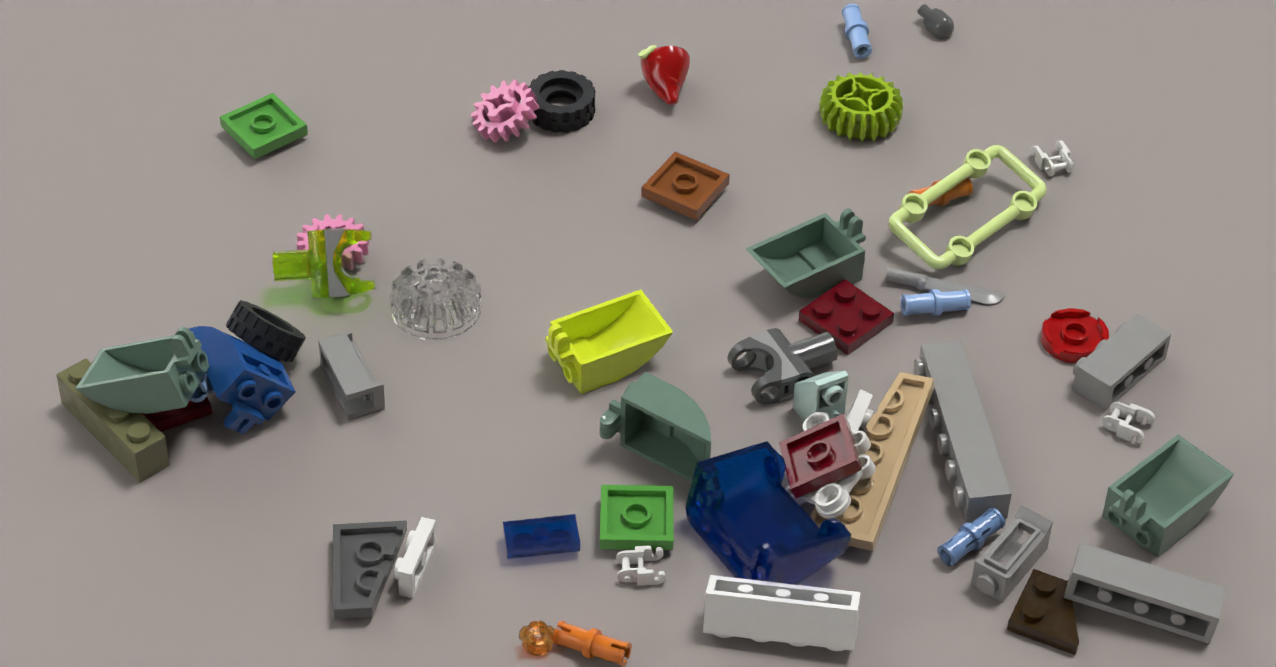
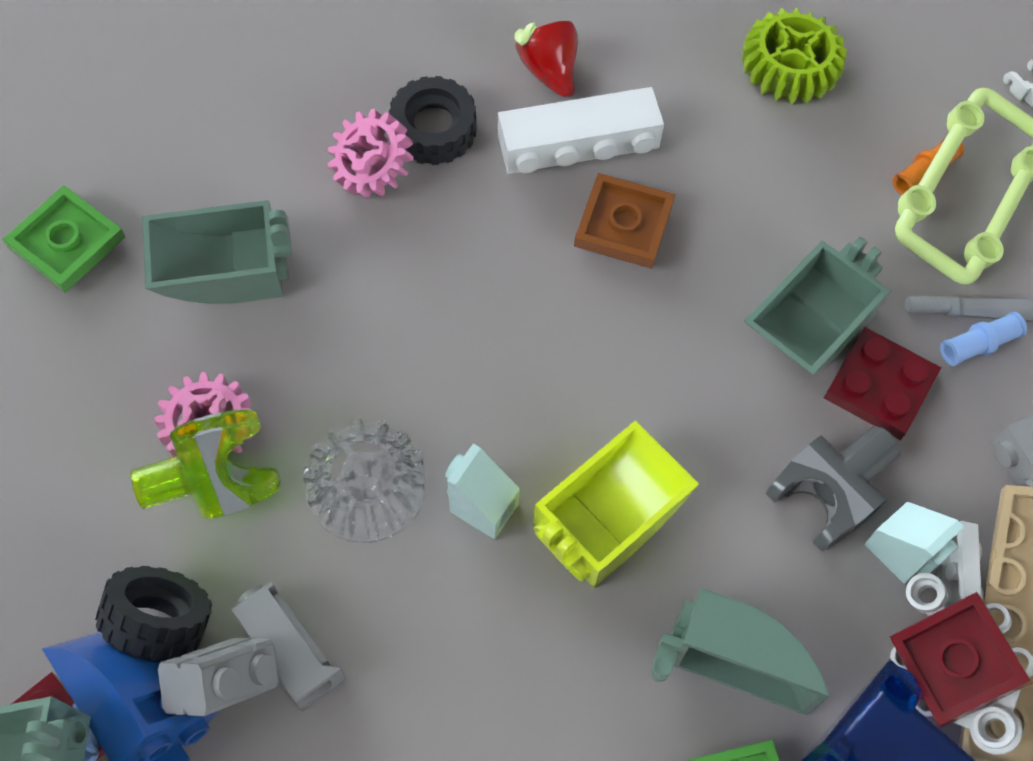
camera: 15 degrees left, 20 degrees up
(300, 362) = (217, 676): none -> light grey brick
(374, 150) = (217, 253): none -> sand green piece
(515, 313) = (481, 492): none -> light aqua slope
(671, 124) = (580, 130): none -> white brick

